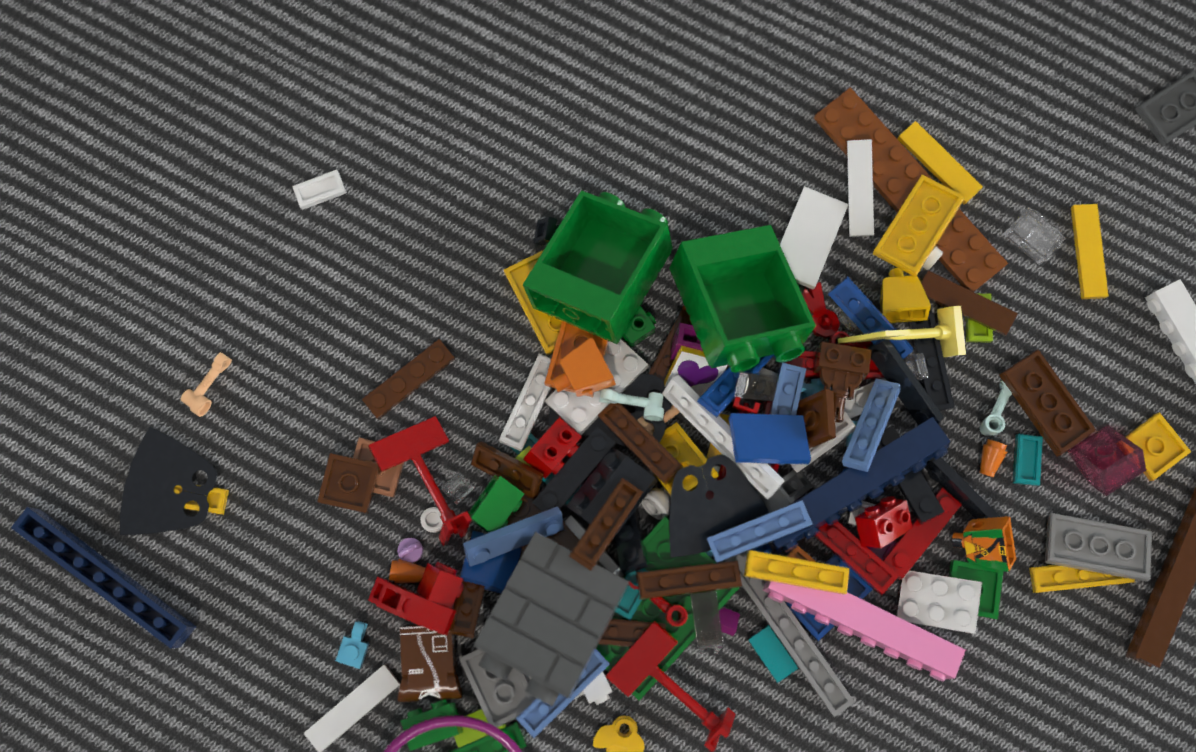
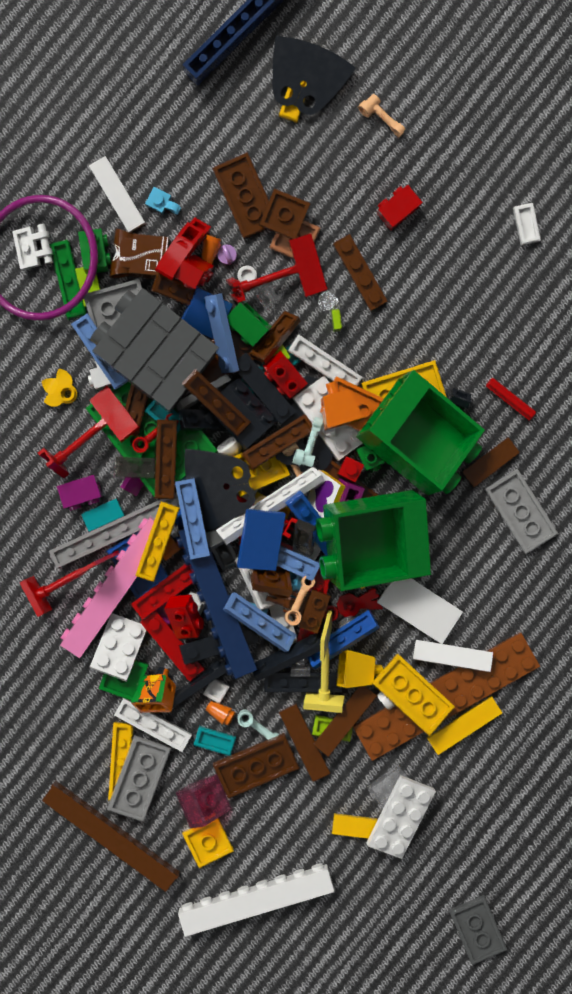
camera: 100 degrees right, 10 degrees up
(320, 343) = (399, 207): none -> red brick
(328, 542) = (243, 193): none -> reddish brown tile
(450, 411) = (328, 301): none -> clear tile
(473, 397) = (336, 320): none -> lime tile
(535, 173) = (510, 398): none -> red axle
(616, 183) = (490, 462): none -> reddish brown tile
(657, 346) = (350, 469): none -> red brick
(669, 139) = (521, 511): none -> light grey tile
(749, 688) = (80, 492): none -> magenta brick
(857, 376) = (298, 602): none -> light nougat brick
(895, 720) = (37, 594): none -> red piece
(966, 467) = (216, 690): none -> white tile
(1004, 349) = (304, 742): none -> reddish brown tile
(1027, 539) = (153, 725): none -> white plate
(1069, 215) = (400, 817): none -> white plate

